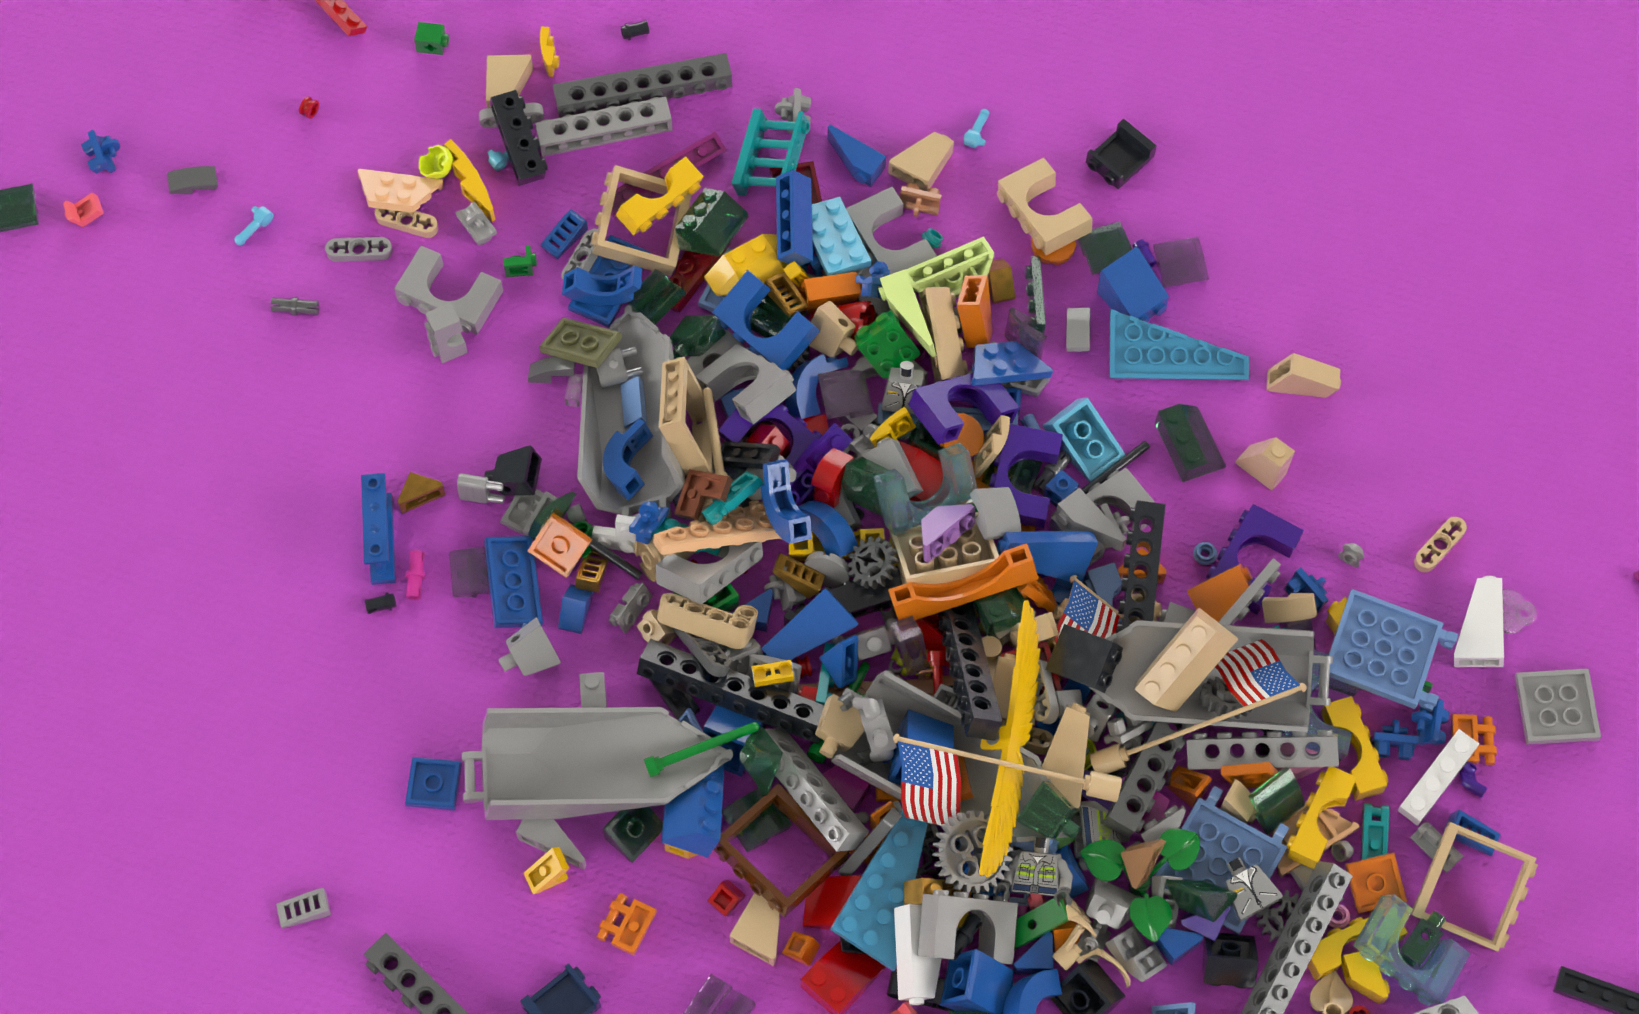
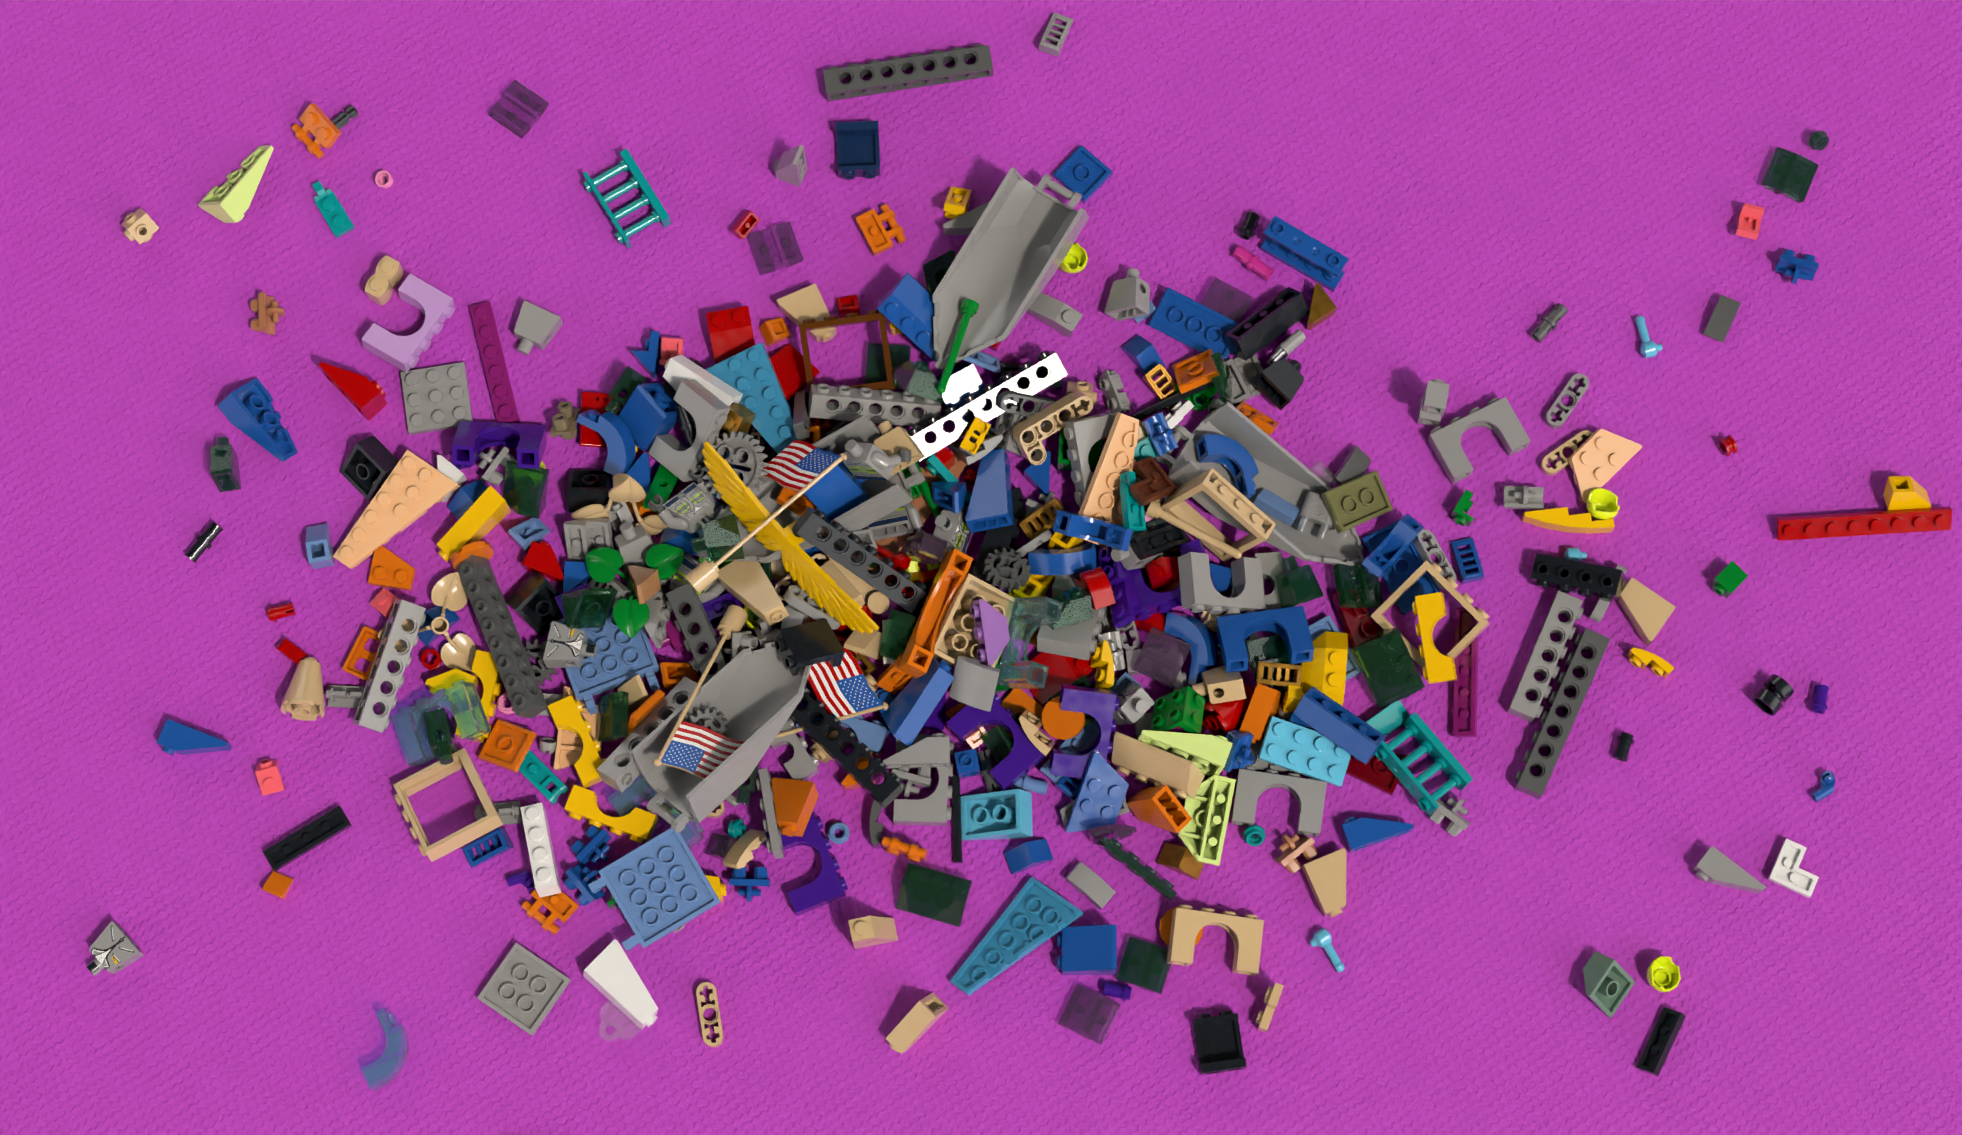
camera: 130 degrees right, 10 degrees up
(469, 517) = (1267, 323): none -> black brick
(565, 472) = (1263, 421): none -> orange plate
(757, 208) = (1389, 718): none -> teal slope
(1056, 134) = (1271, 998): none -> tan plate
(1098, 392) = (1028, 855): none -> blue slope
(1175, 486) = (913, 852): none -> orange plate
(1176, 524) = (876, 828): none -> dark grey slope
(1185, 661) = (747, 705): tan slope -> none
(1188, 982) = (543, 561): none -> red slope
(1351, 554) = (752, 938): light grey plate -> none

